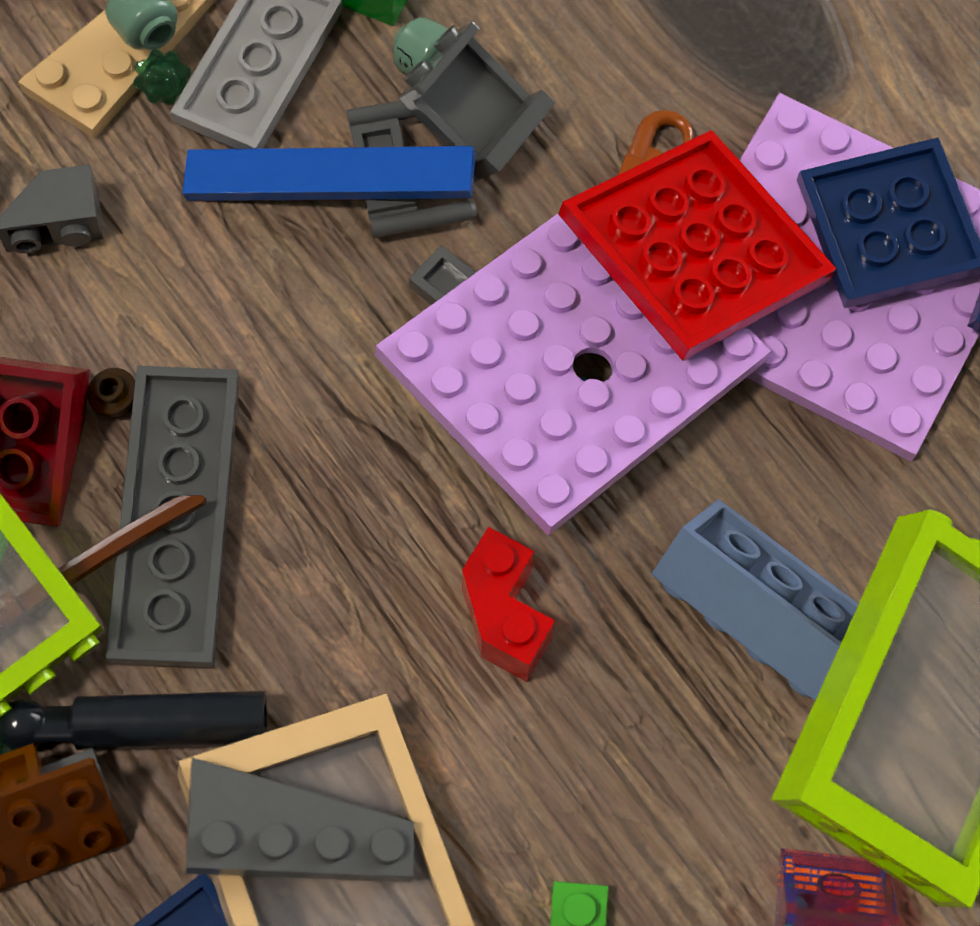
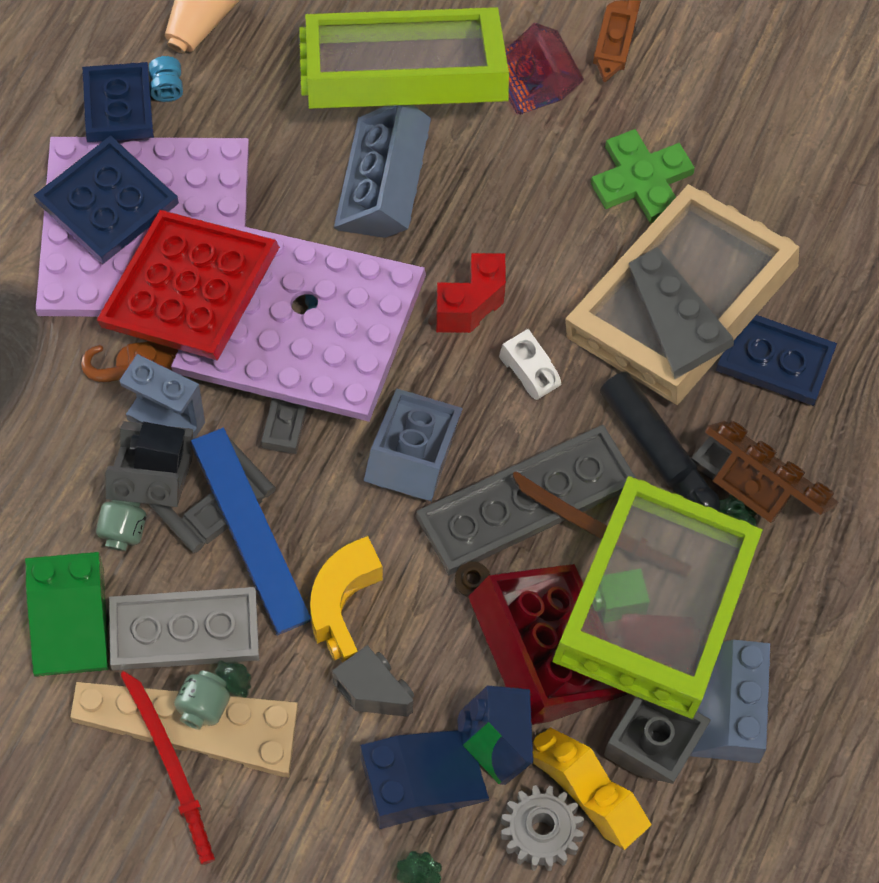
camera: 120 degrees left, 5 degrees down
(191, 218) = (338, 579): none -> yellow arch
(336, 420) = (412, 444): none -> sand blue slope
(356, 622) = (530, 364): none -> white leg
(485, 110) = (158, 447): none -> black brick
(551, 143) = (163, 396): none -> sand blue panel

